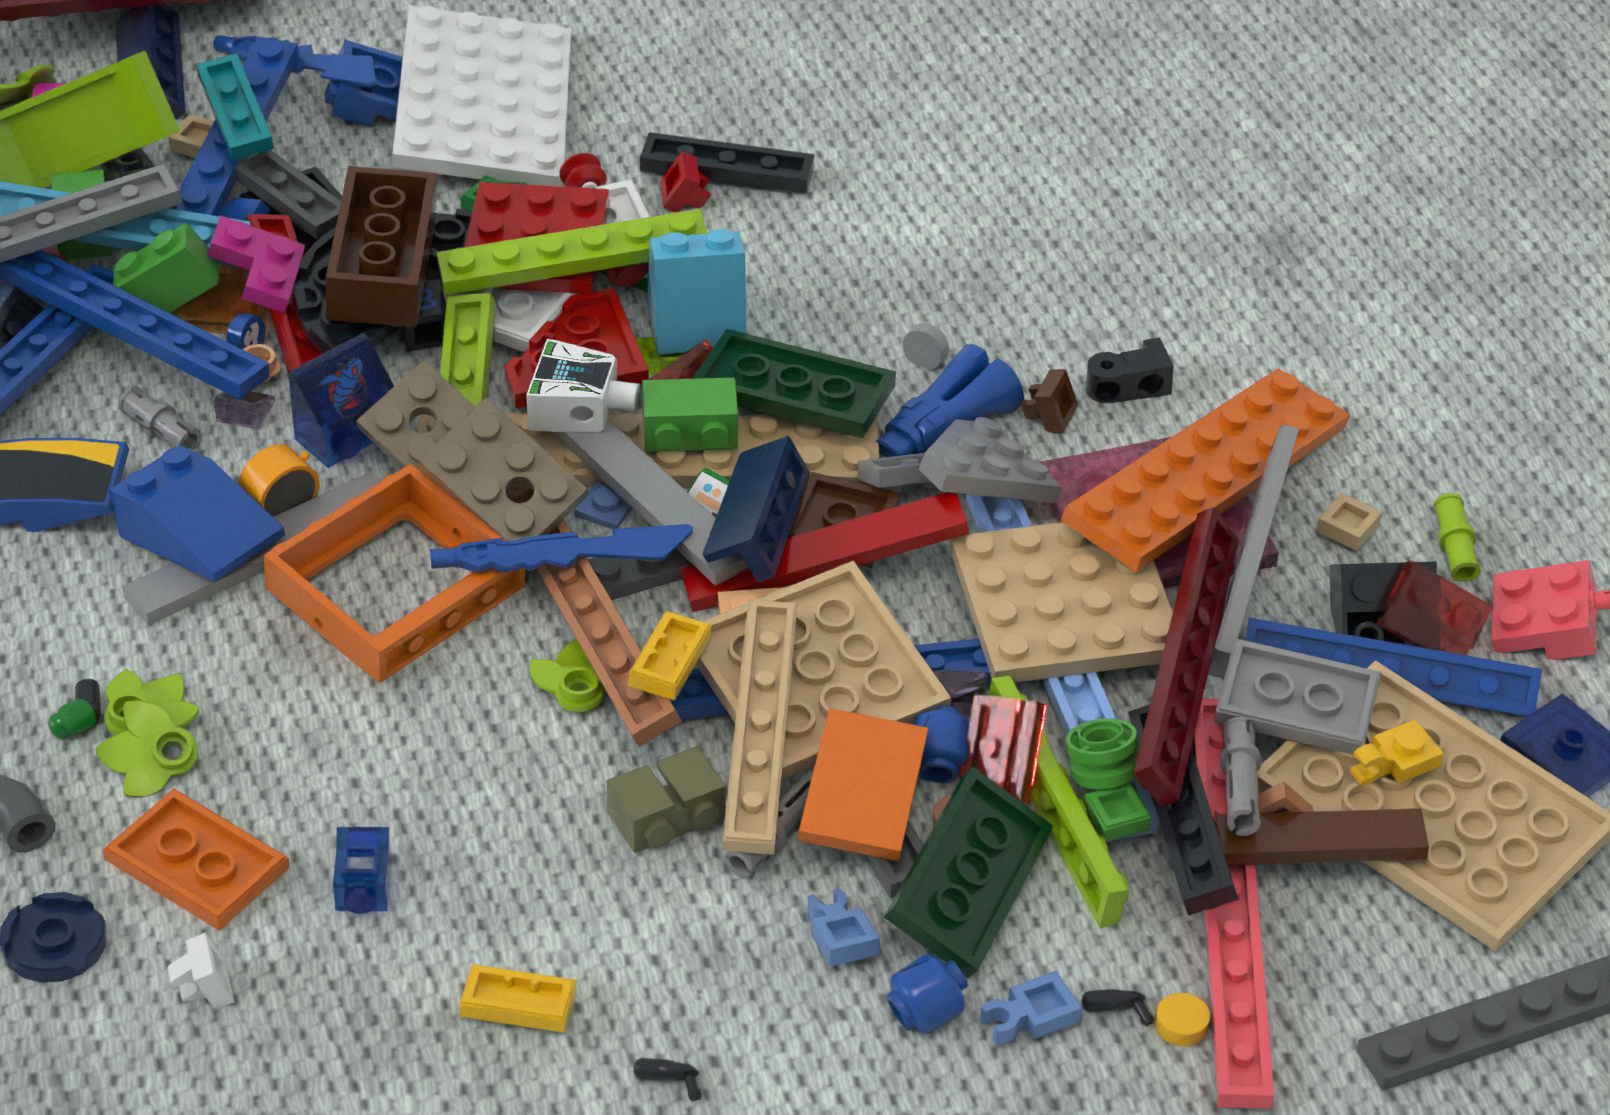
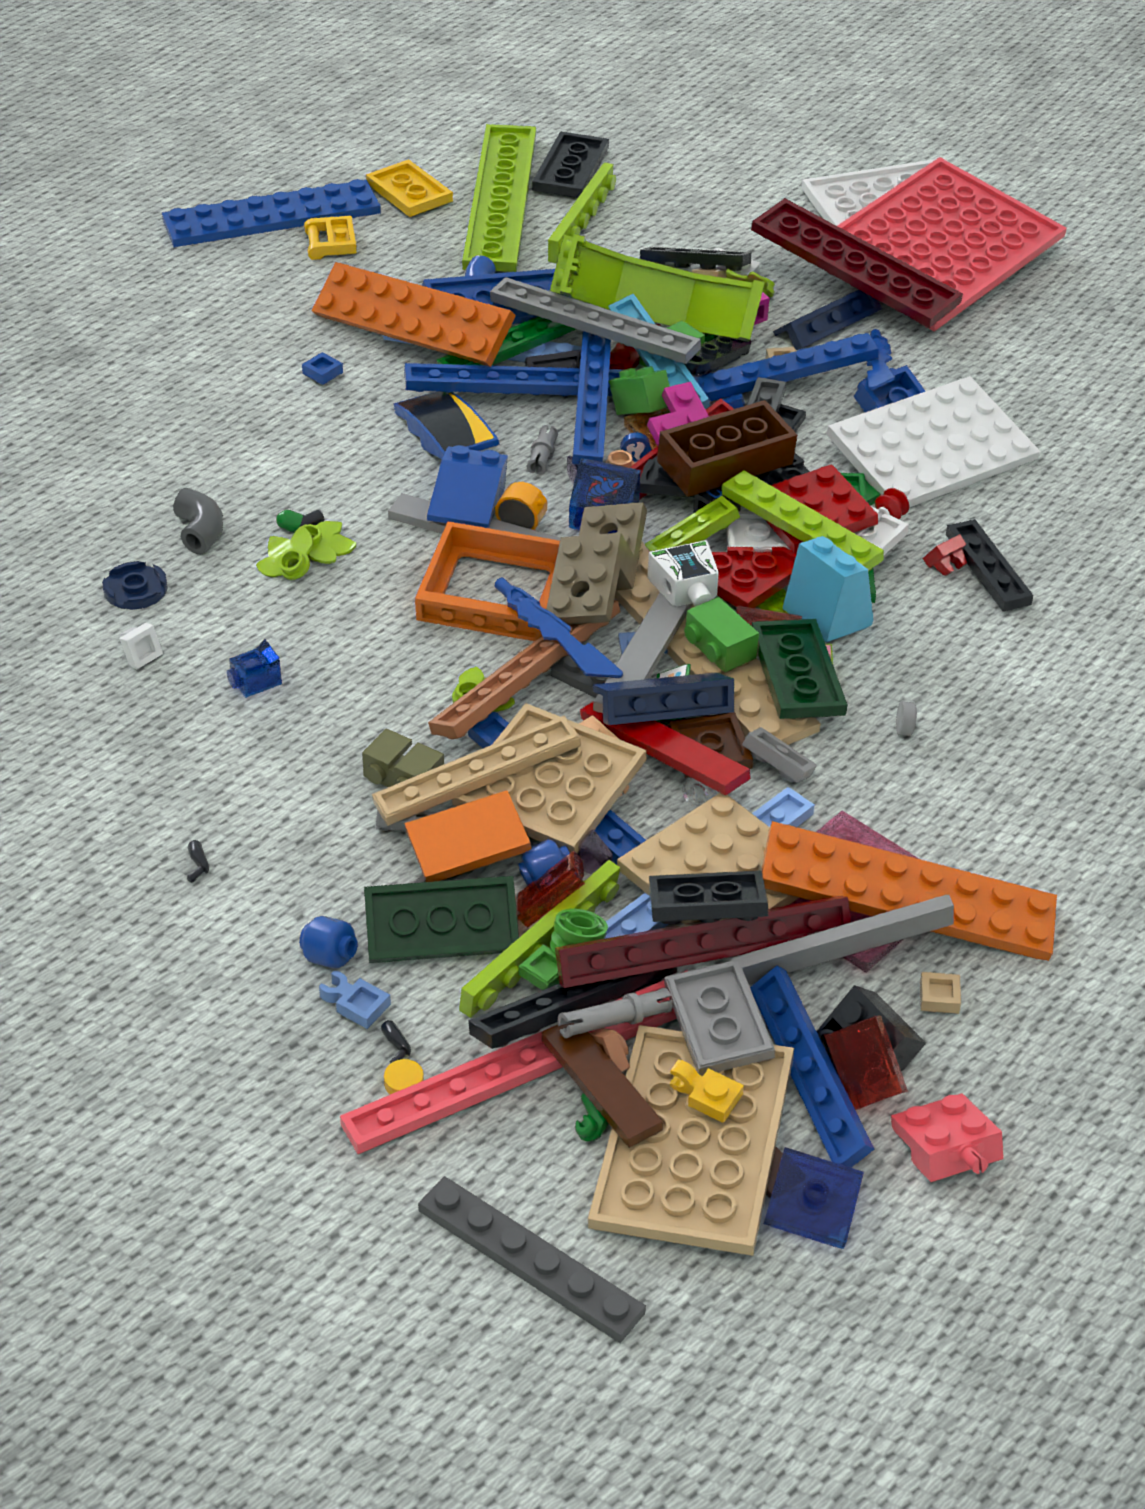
camera: 60 degrees right, 0 degrees up
(196, 859) = (227, 610): orange tile -> none
(235, 106) = (792, 348): teal plate -> none
(518, 998) = (208, 772): yellow plate -> none
(669, 655) = (493, 704): yellow plate -> none
(842, 933) = (350, 884): medium blue plate -> none
(917, 566) = (697, 793): none -> clear tile
(963, 392) = (875, 752): blue piece -> none
(985, 462) = (801, 778): light grey plate -> none
(1052, 401) = (912, 797): reddish brown tile -> none
(1130, 374) = (979, 825): black leg -> none
(1145, 610) = (708, 896): none -> black plate
(1350, 877) = (593, 1124): none -> green arm
(1457, 537) = (980, 1058): lime pin -> none

